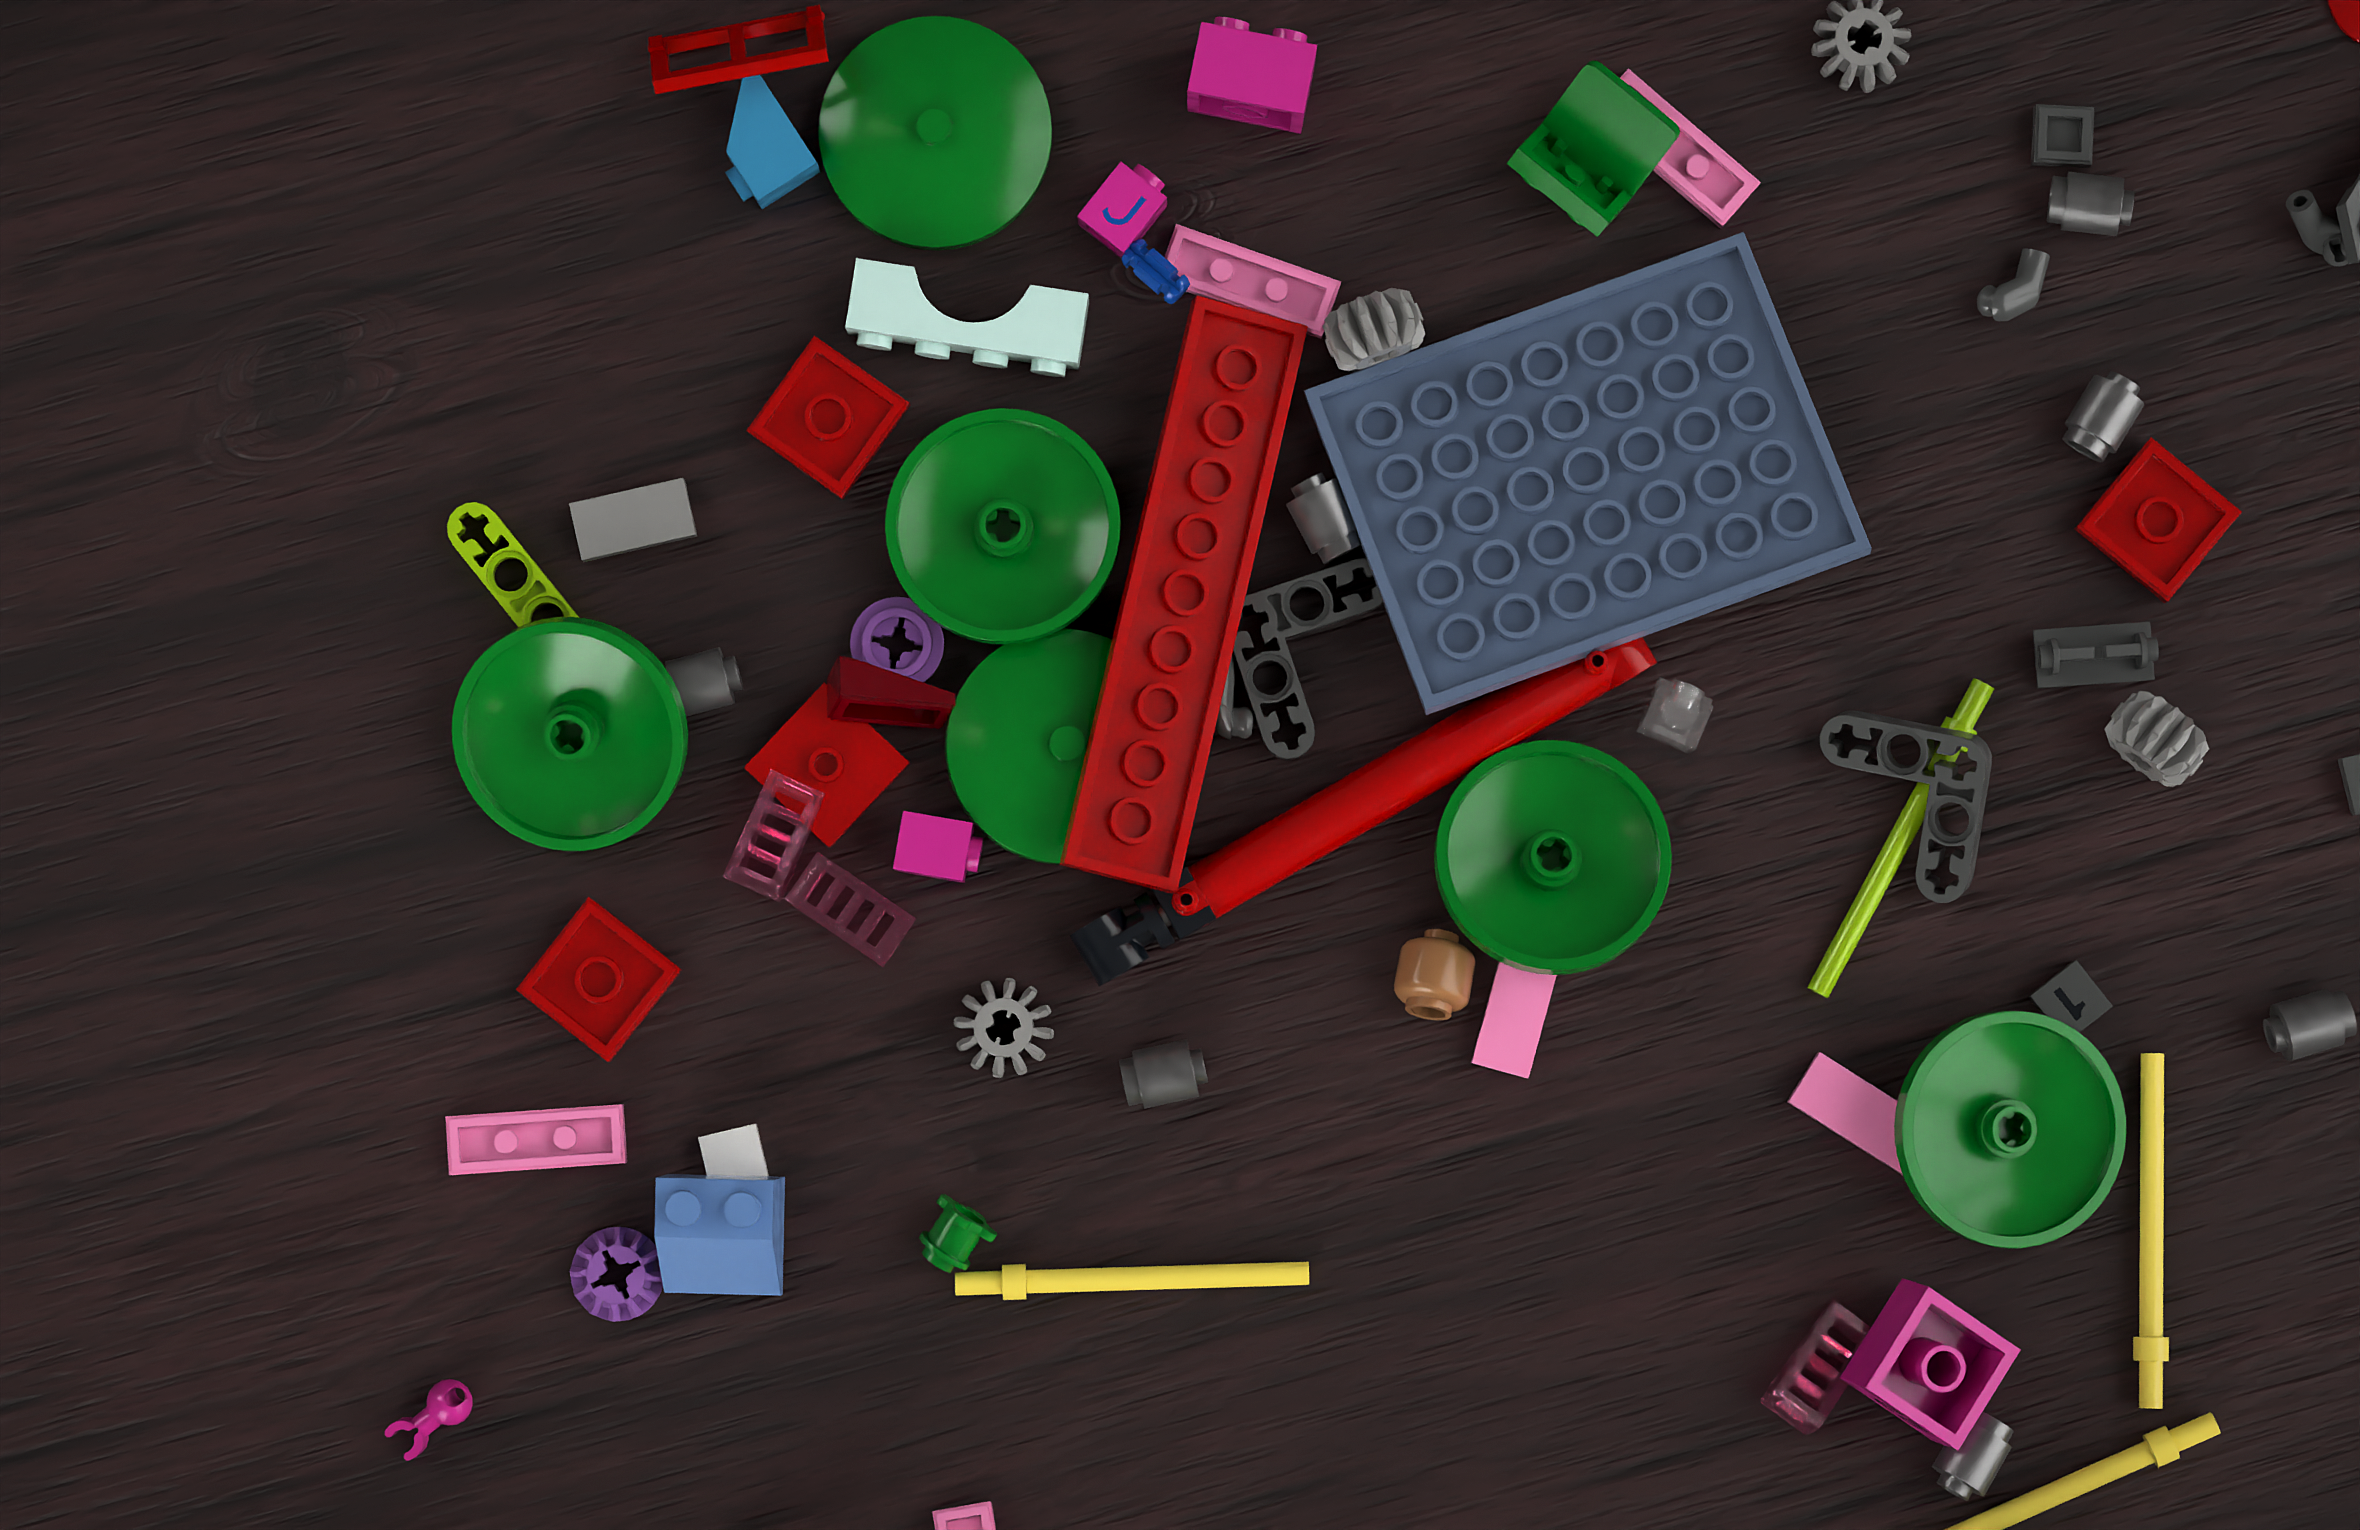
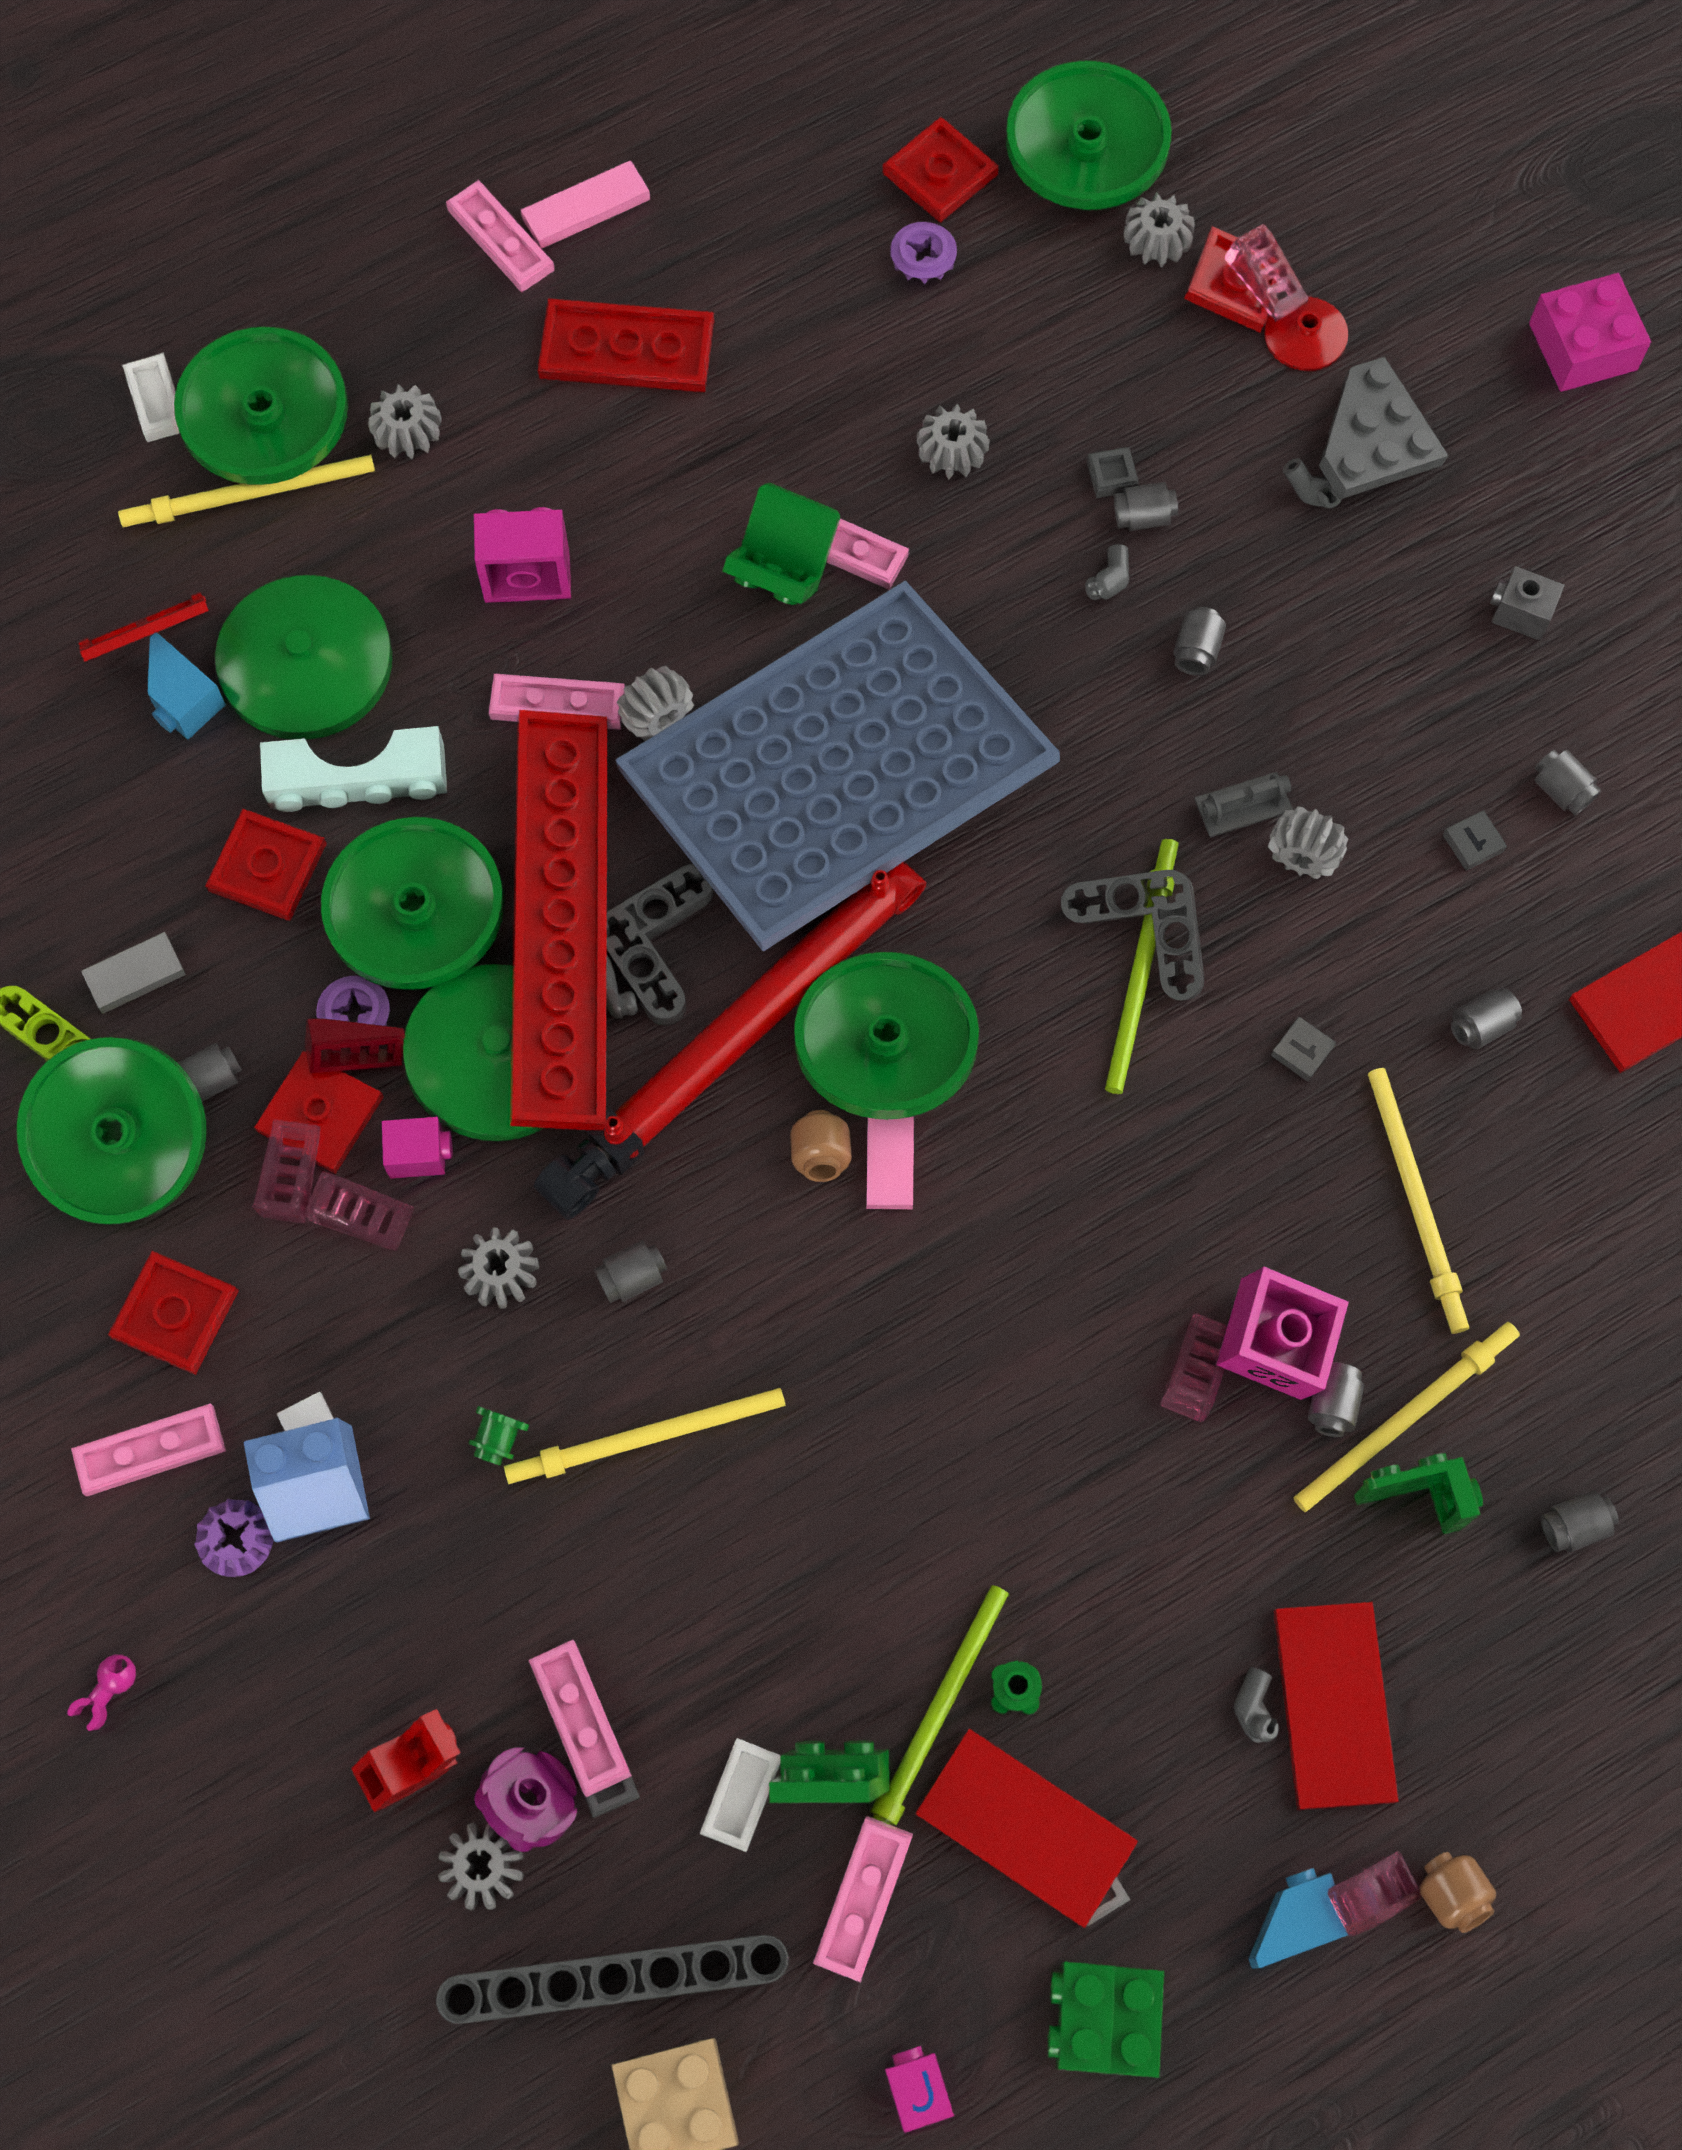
camera: 15 degrees left, 15 degrees down
(1124, 207) = (452, 671): dark pink brick -> none
(1155, 271) = (485, 704): blue piece -> none
(1323, 518) = (653, 843): flat silver brick -> none
(1676, 714) = (951, 909): clear brick -> none
(1848, 1108) = (1188, 1173): bright pink tile -> none
(2010, 1129) = (1288, 1145): green dish -> none
(2158, 520) = (1260, 701): red plate -> none

